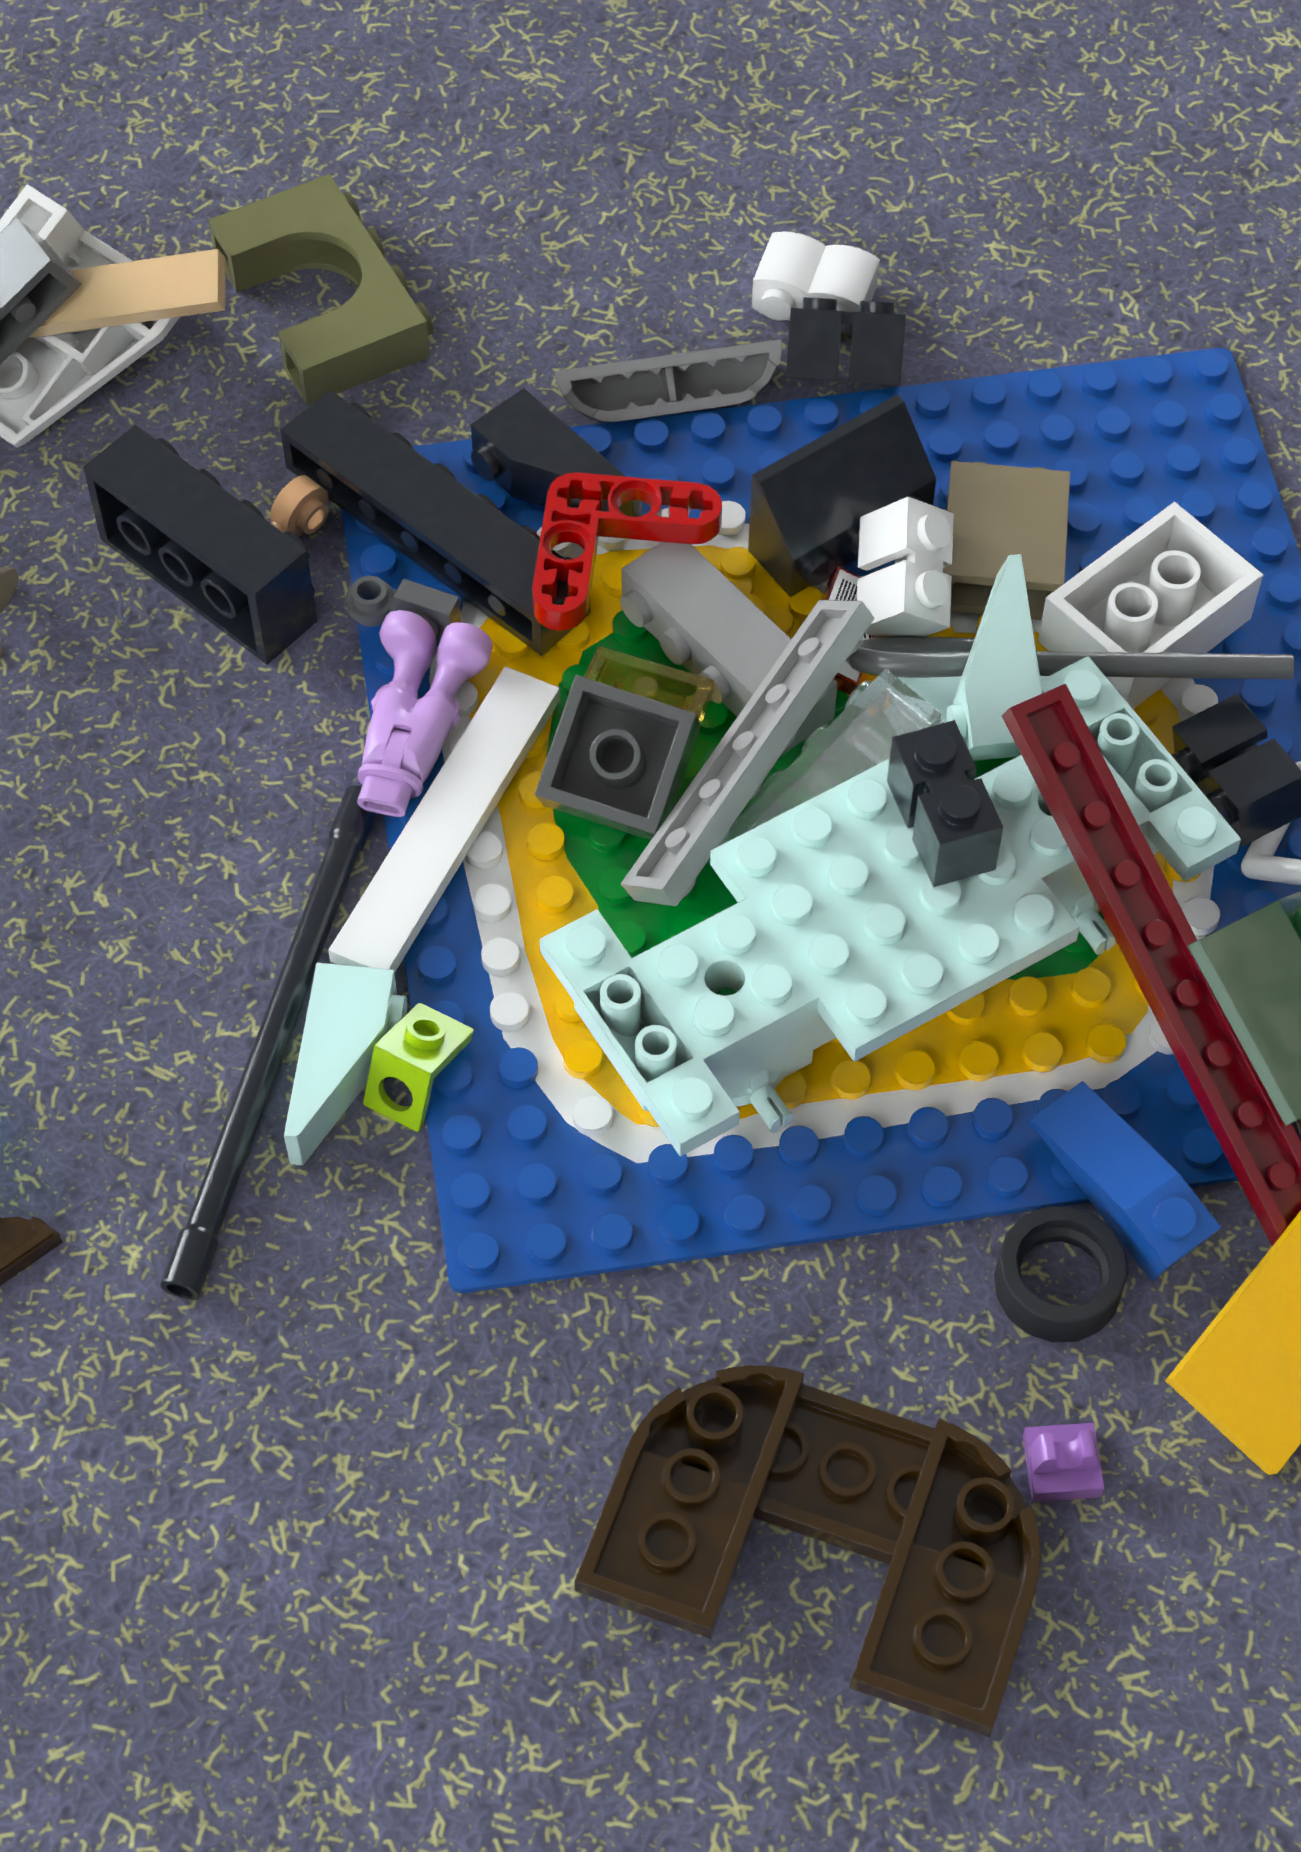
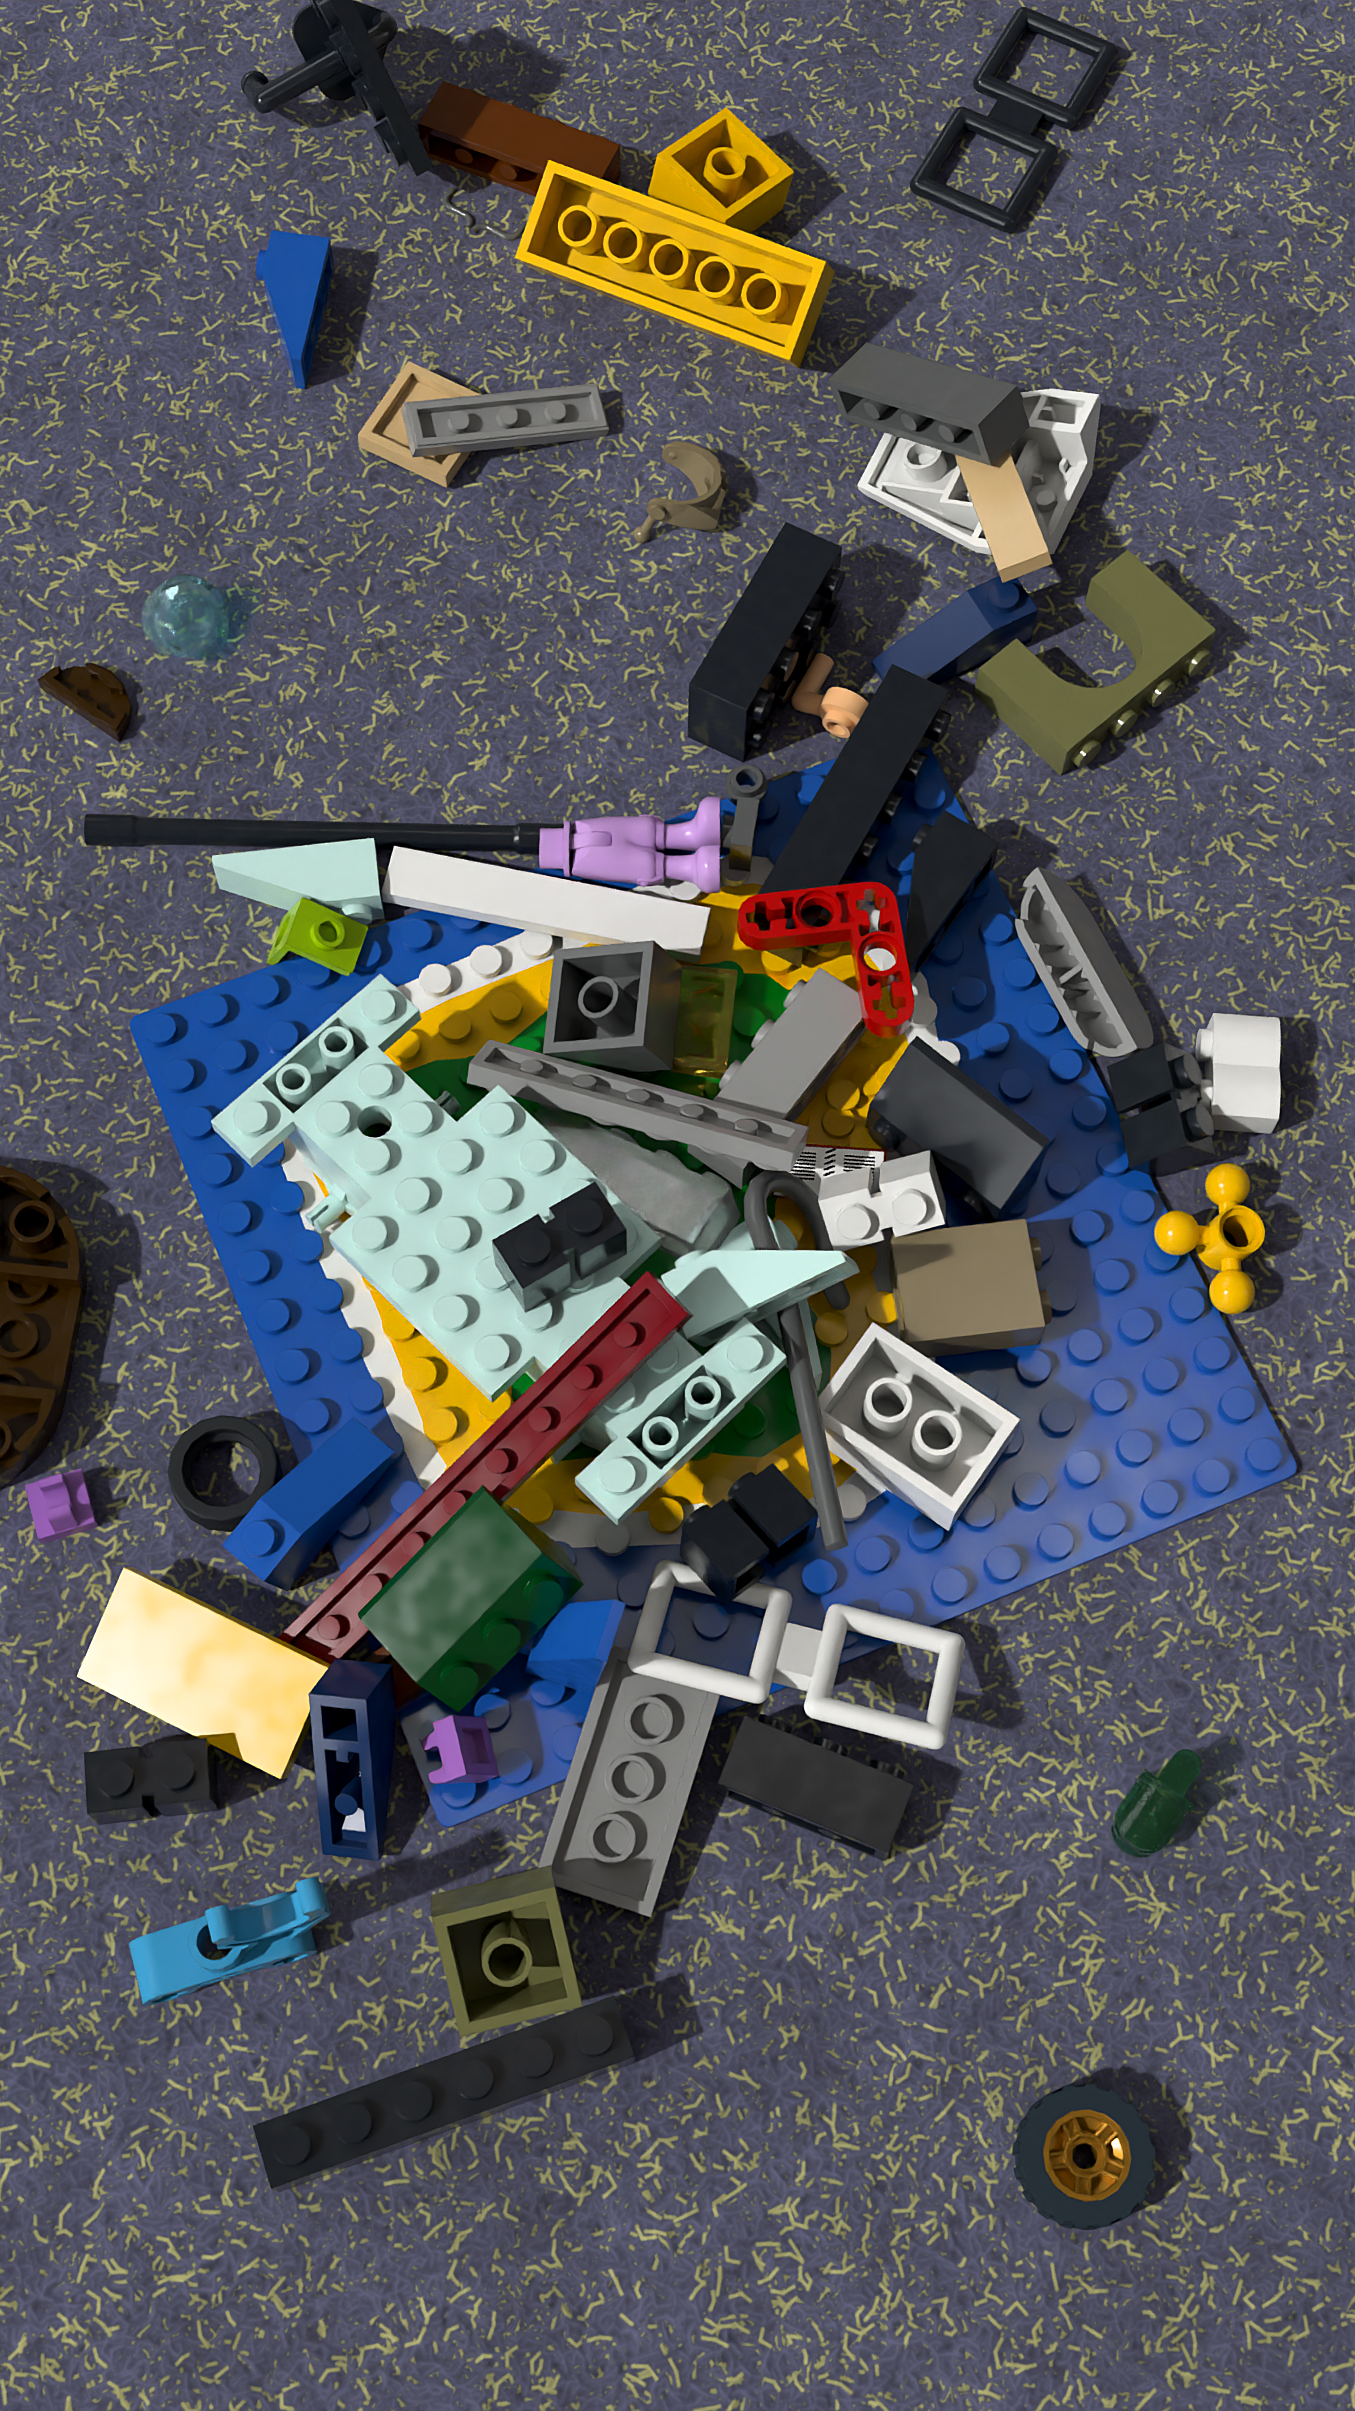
camera: 75 degrees right, 10 degrees up
(246, 391) = (964, 632): none -> dark blue slope
(988, 335) = (1179, 1233): none -> yellow piece

